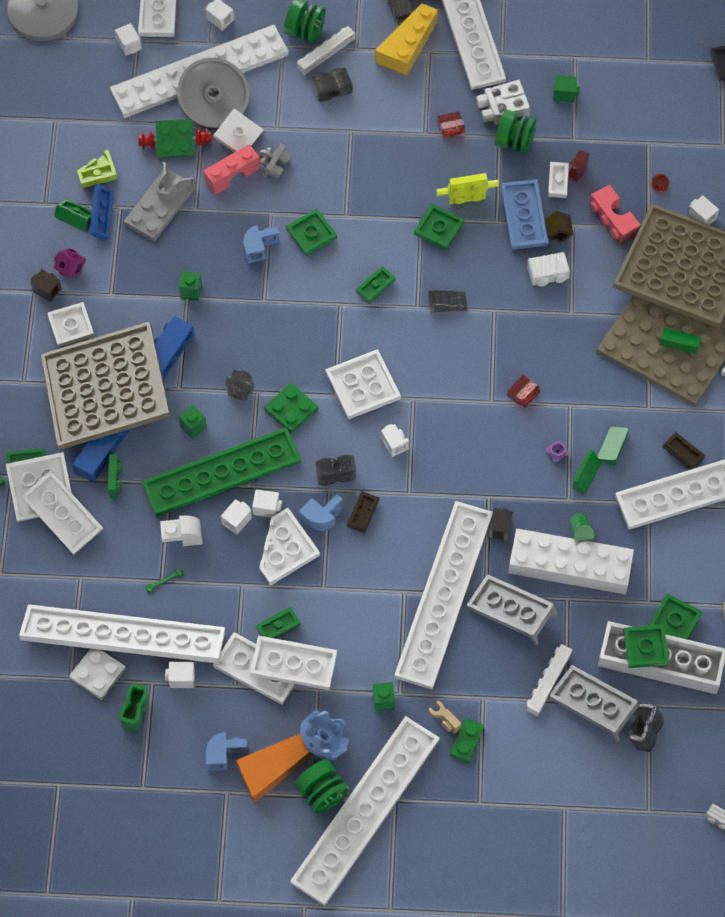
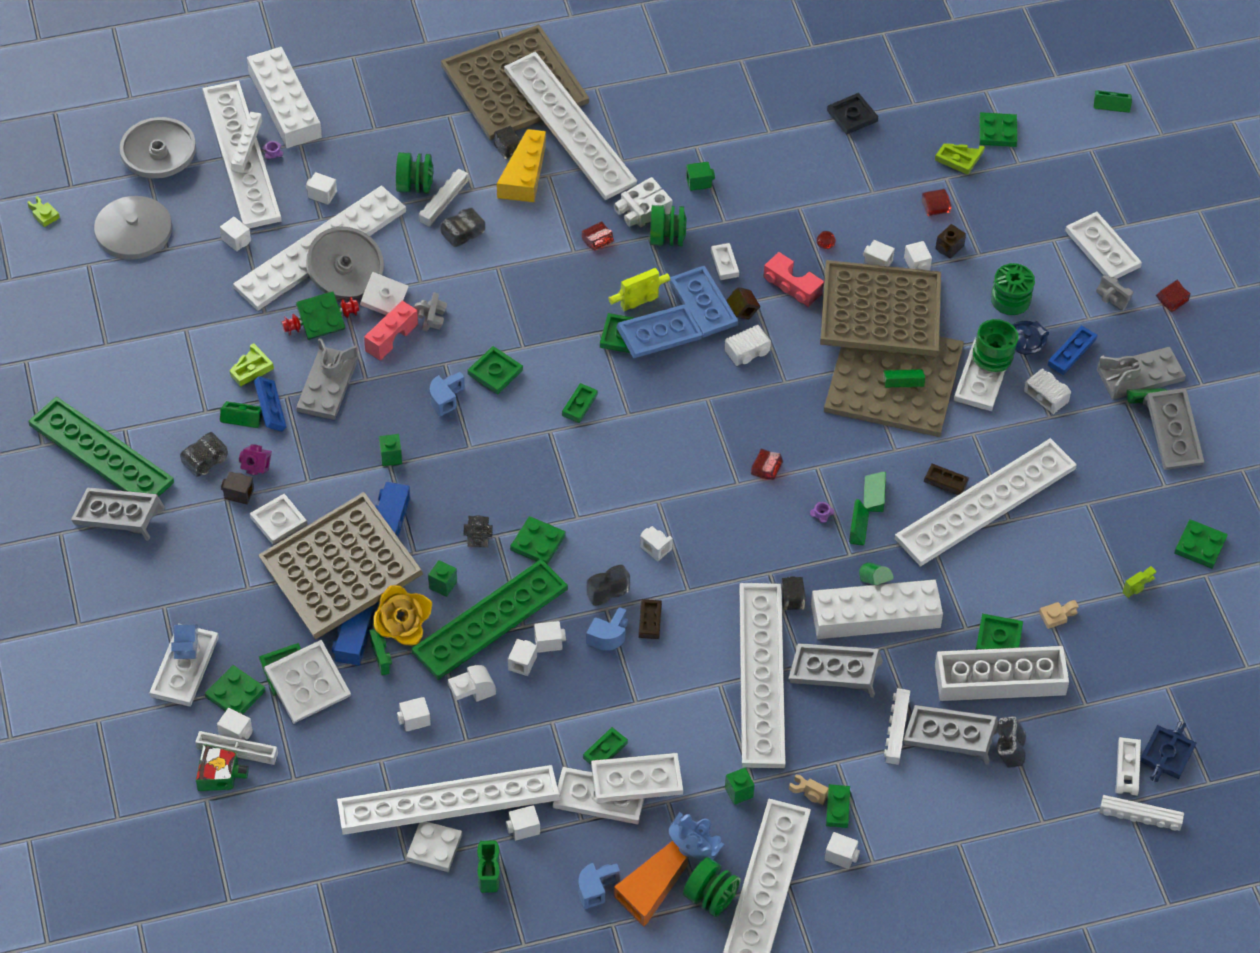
camera: 20 degrees left, 10 degrees down
(27, 245) = (204, 454): none -> clear smoke brick
(62, 512) = (340, 699): white plate -> none
(122, 544) = (414, 714): none -> white brick
(146, 462) = (415, 609): none -> yellow brick
(150, 587) = (457, 749): green hinge -> none
(285, 547) = (584, 673): white plate -> none
(363, 384) = (603, 499): white plate -> none
(446, 307) = (648, 409): clear smoke slope -> none
(453, 785) = (842, 850): none -> white brick
(471, 234) = (659, 331): none -> medium blue plate
(578, 165) = (740, 243): clear red piece -> none
(646, 646) = (985, 663): green plate -> none

